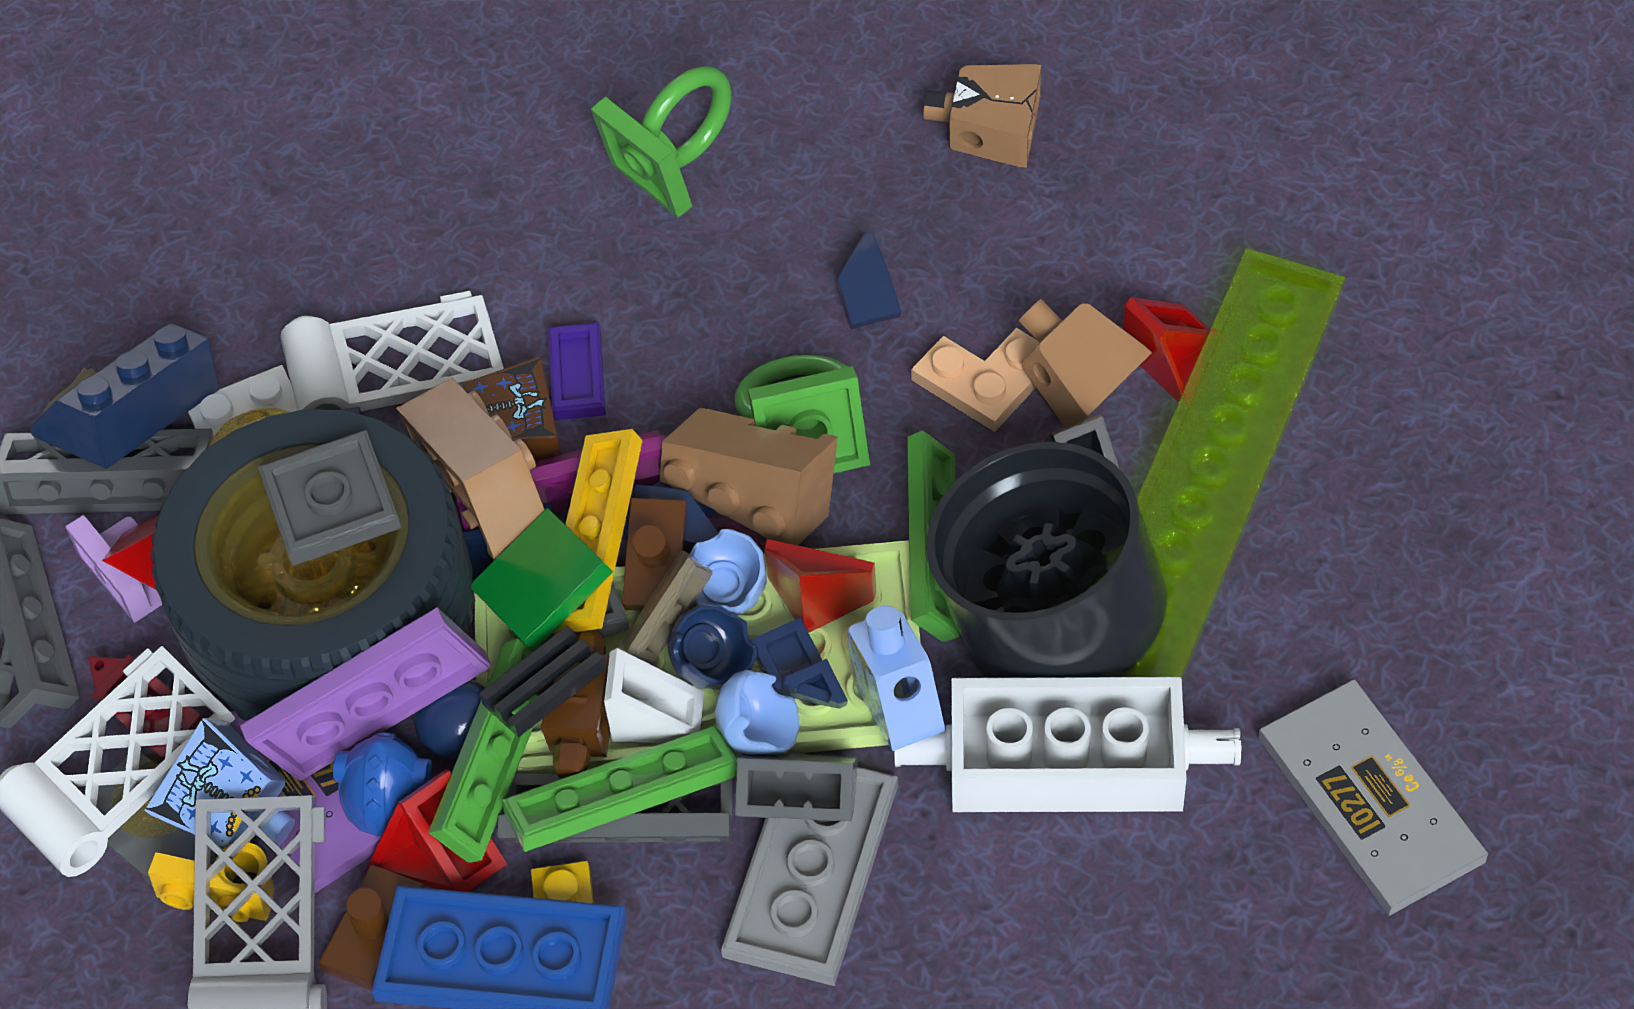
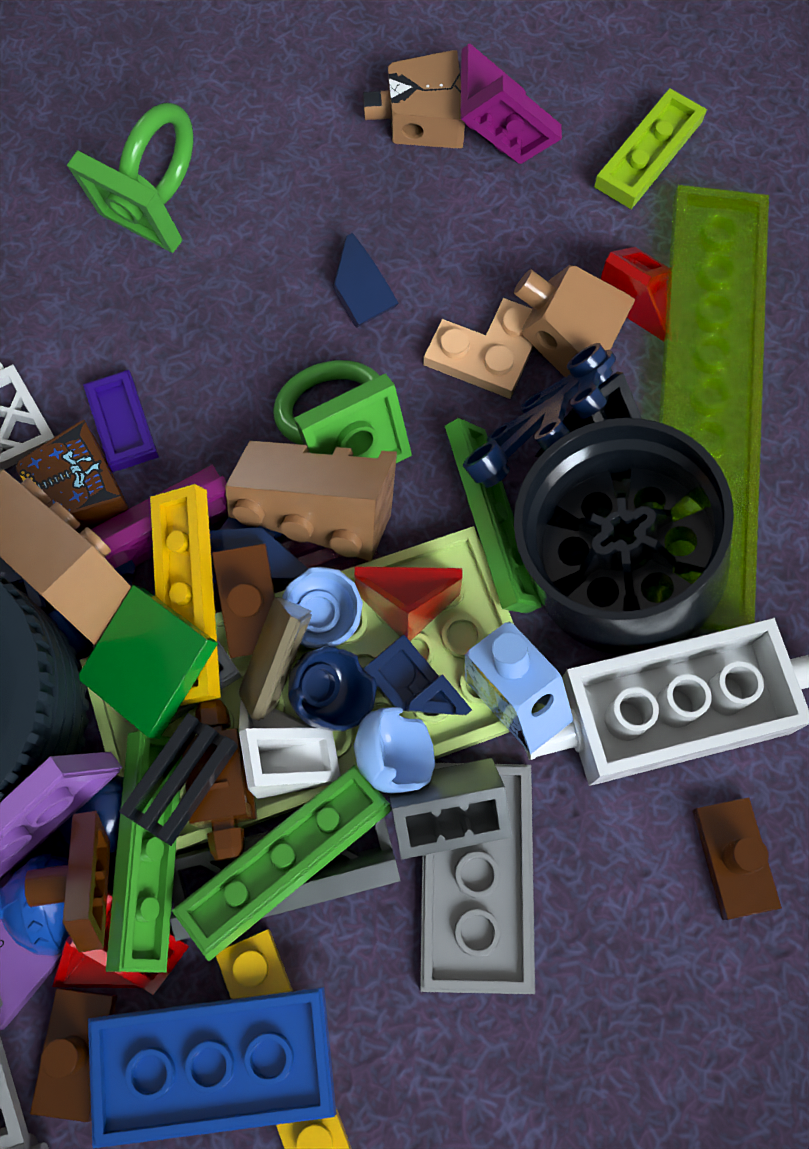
camera: 20 degrees left, 15 degrees up
(425, 746) = (78, 885): none -> reddish brown tile
(1068, 406) = (547, 411): none -> dark blue plant
(1072, 133) = (502, 110): none -> magenta bracket
(1082, 910) = (736, 859): none -> reddish brown tile
(1232, 205) = (650, 148): none -> lime plate

